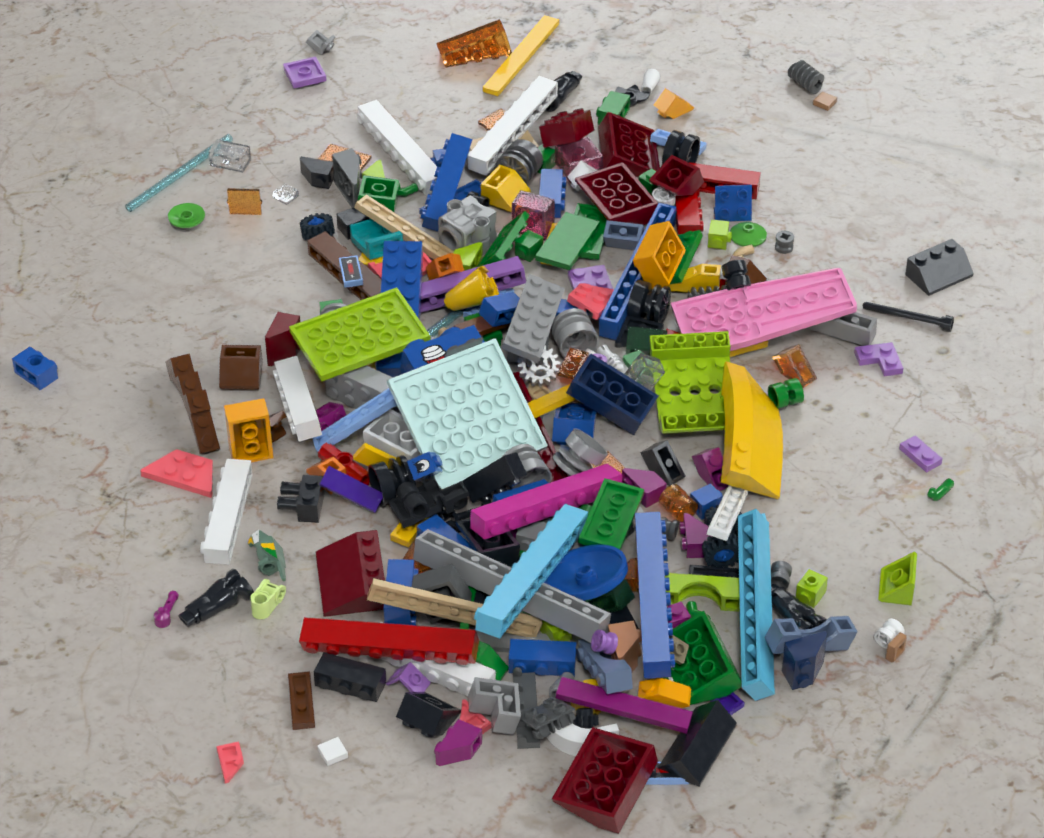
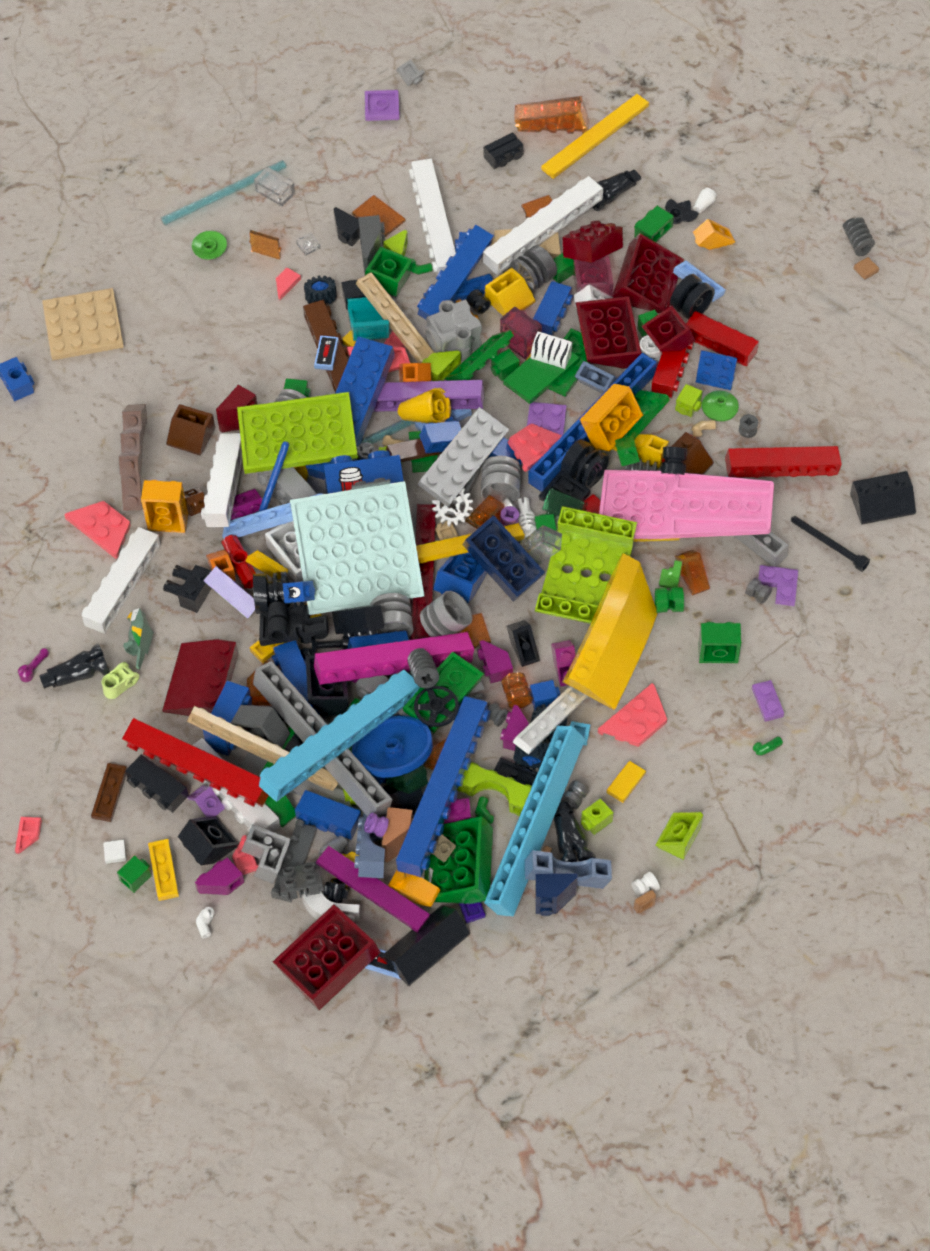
camera: 20 degrees right, 15 degrees up
(84, 309) = (82, 324): none -> tan plate
(277, 229) = (286, 282): none -> coral tile
(353, 375) = (274, 476): none -> blue piece
(364, 763) = (134, 873): none -> green brick
(393, 752) = (163, 869): none -> yellow plate
(441, 82) = (503, 151): none -> black brick
(457, 787) = (203, 921): none -> white arm
(572, 218) = (551, 350): none -> white brick
(585, 496) = (423, 668): none -> dark grey piece
(612, 527) = (436, 706): none -> black wheel
(686, 280) = (627, 450): none -> green brick
(780, 372) = (671, 577): none -> bright green bracket
(805, 499) = (637, 719): none -> coral wing
(822, 554) = (626, 781): none -> yellow tile
(845, 255) = (783, 461): none -> red brick
(853, 414) = (719, 642): none -> green brick
(865, 367) = (758, 591): none -> flat silver wheel

